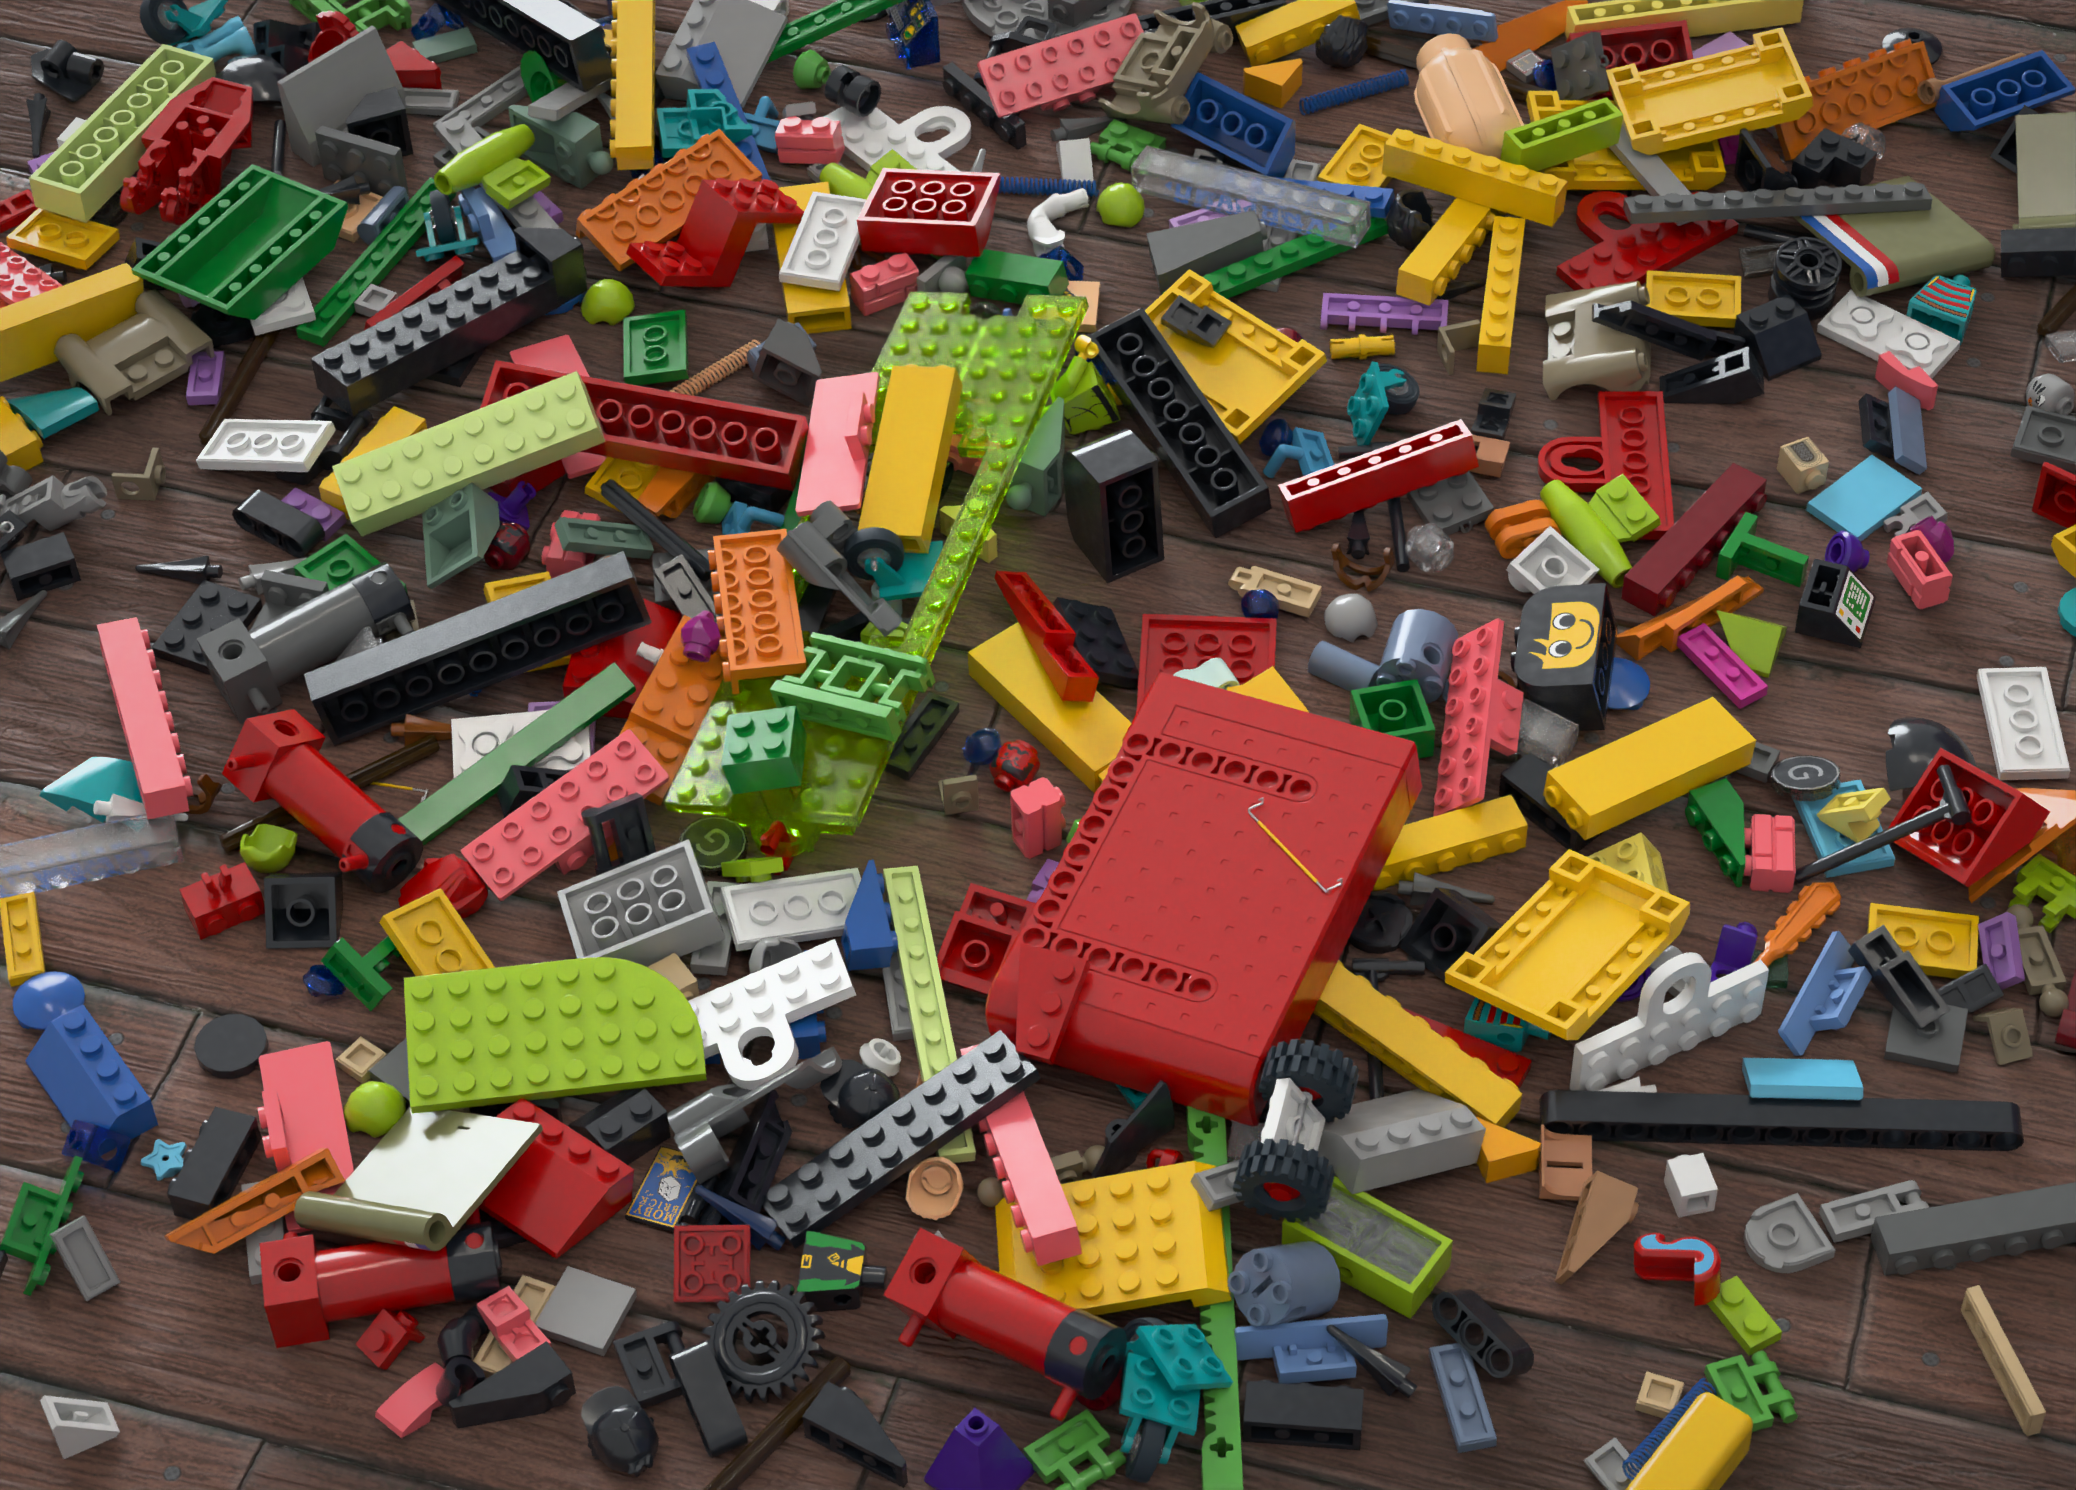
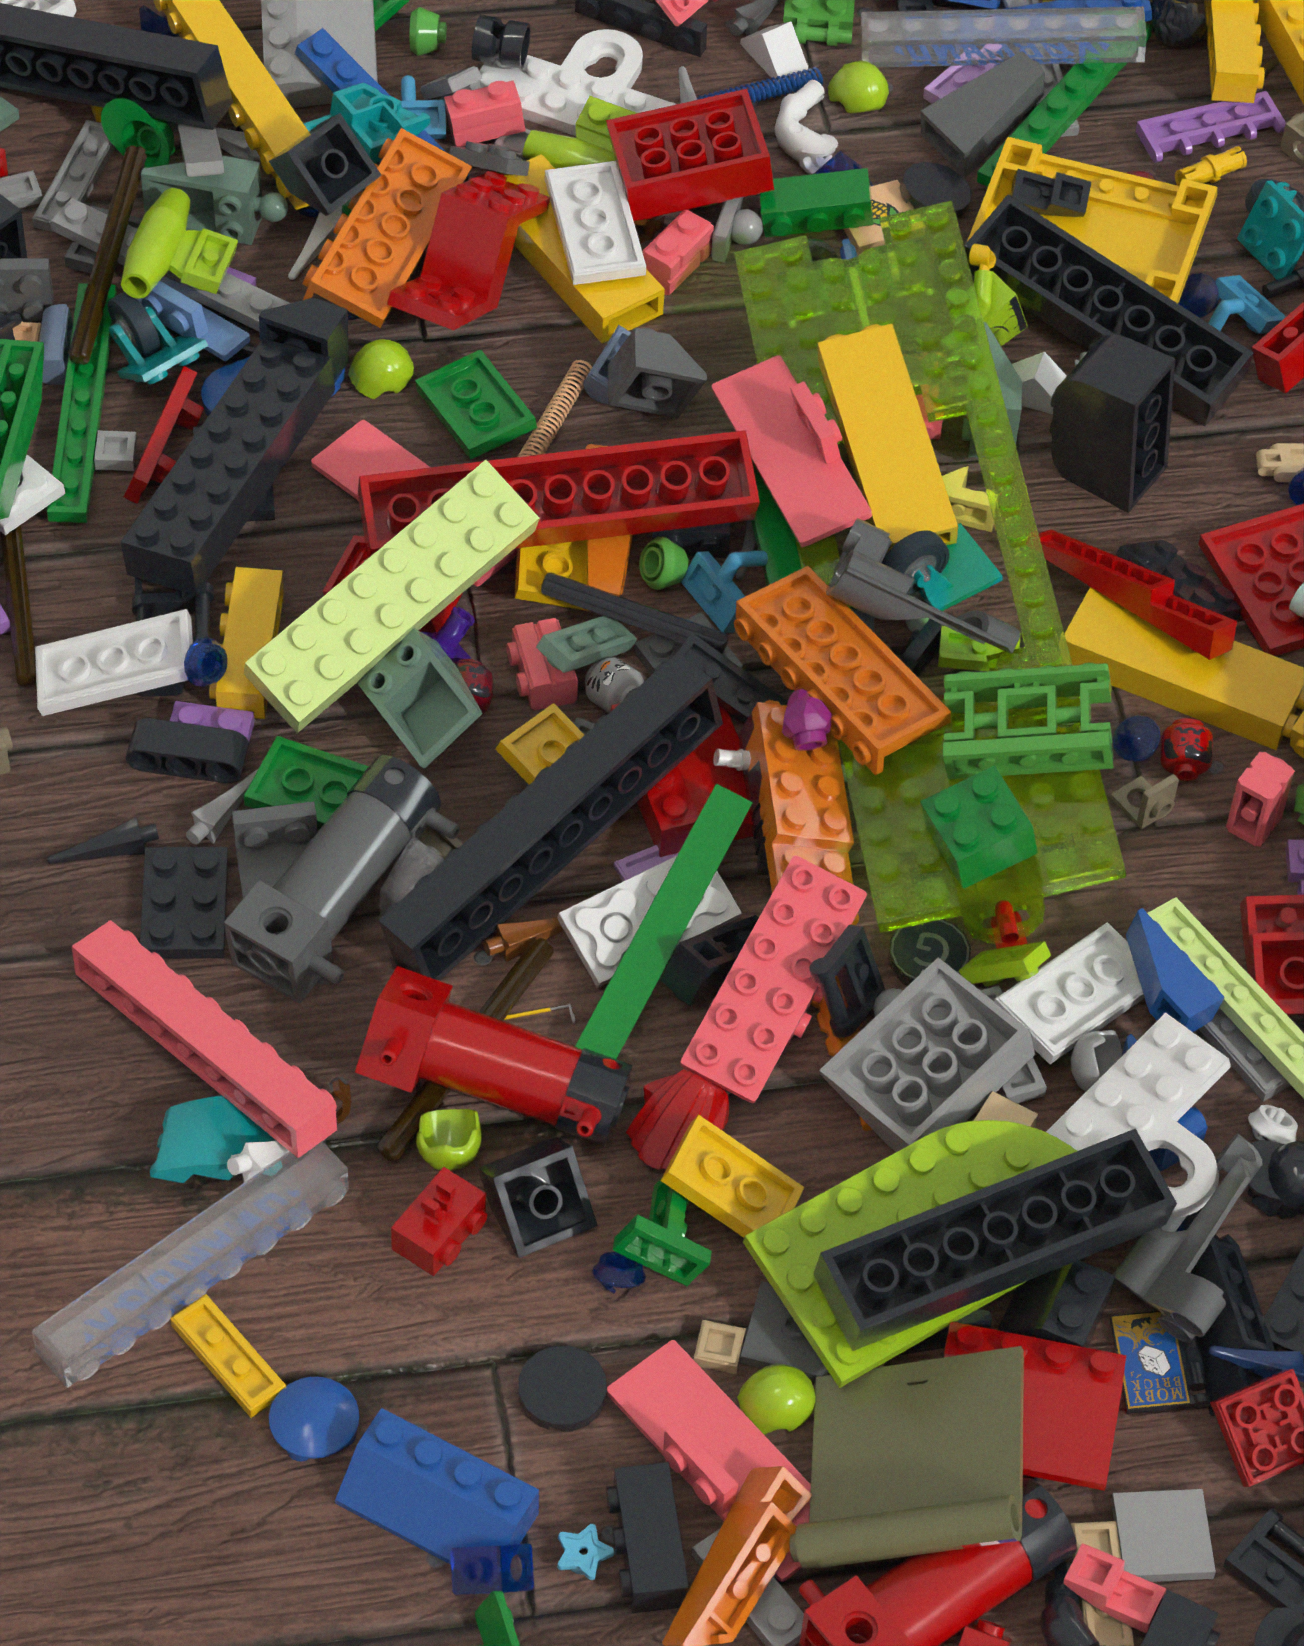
camera: 30 degrees left, 5 degrees up
(316, 461) = (205, 662): none -> clear blue hat
(482, 128) = (107, 255): none -> dark brown axle
(572, 1042) = (993, 1239): none -> black brick
(637, 137) = (326, 166): none -> black slope
(782, 174) = (491, 157): none -> dark grey plate
(1120, 295) = (933, 184): none -> black tile

